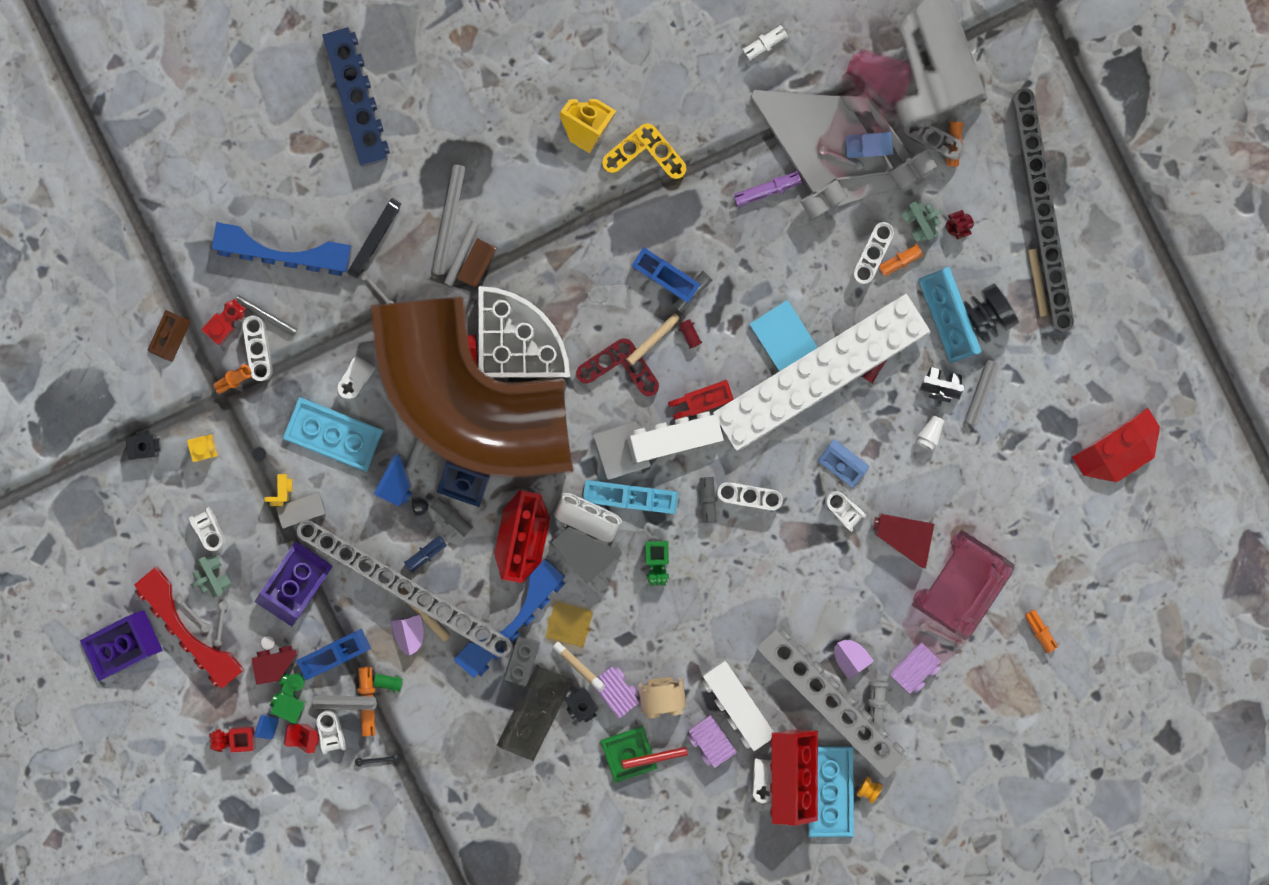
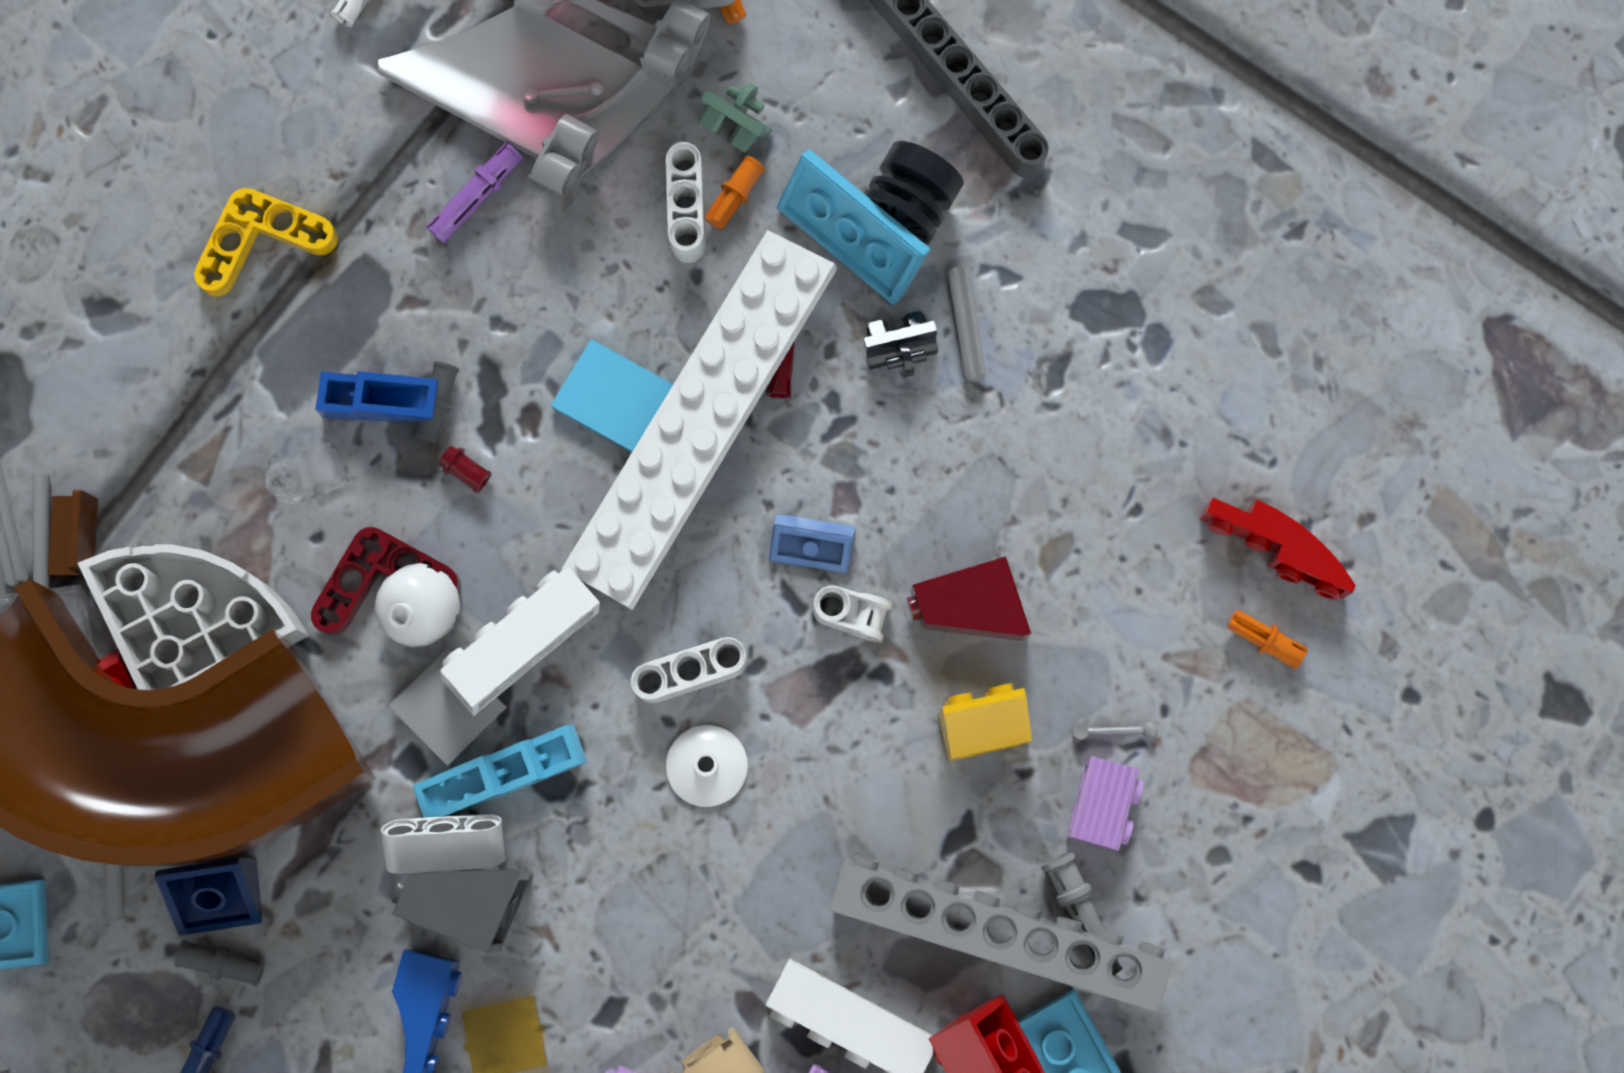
camera: 25 degrees left, 10 degrees down
(395, 482) = (89, 953): blue slope -> none
(419, 506) = (158, 973): black hinge -> none
(521, 536) = (349, 931): red wedge -> none
(585, 121) = (141, 237): yellow slope -> none
(632, 393) = (417, 605): none -> white cylinder
(653, 339) = (409, 506): tan bar -> none
(657, 556) = (590, 846): green brick -> none
(704, 399) = (537, 557): red hinge -> none
(708, 500) = (627, 712): dark grey pin -> none
(733, 533) = (710, 787): none -> white dish
(851, 657) = (992, 843): lavender brick -> none
(869, 145) = (593, 46): medium blue slope -> none
(869, 789) = (1141, 1047): light orange wheel -> none
(879, 600) = (985, 723): none -> yellow slope
(930, 435) = (923, 426): white cone -> none
(959, 224) = (794, 93): dark red gear -> none
(965, 586) = (1108, 628): clear pink windscreen -> none
(1038, 283) = (960, 121): tan bar -> none
(1079, 596) = (1296, 551): none -> red slope
(1121, 449) = (1226, 298): red wedge -> none

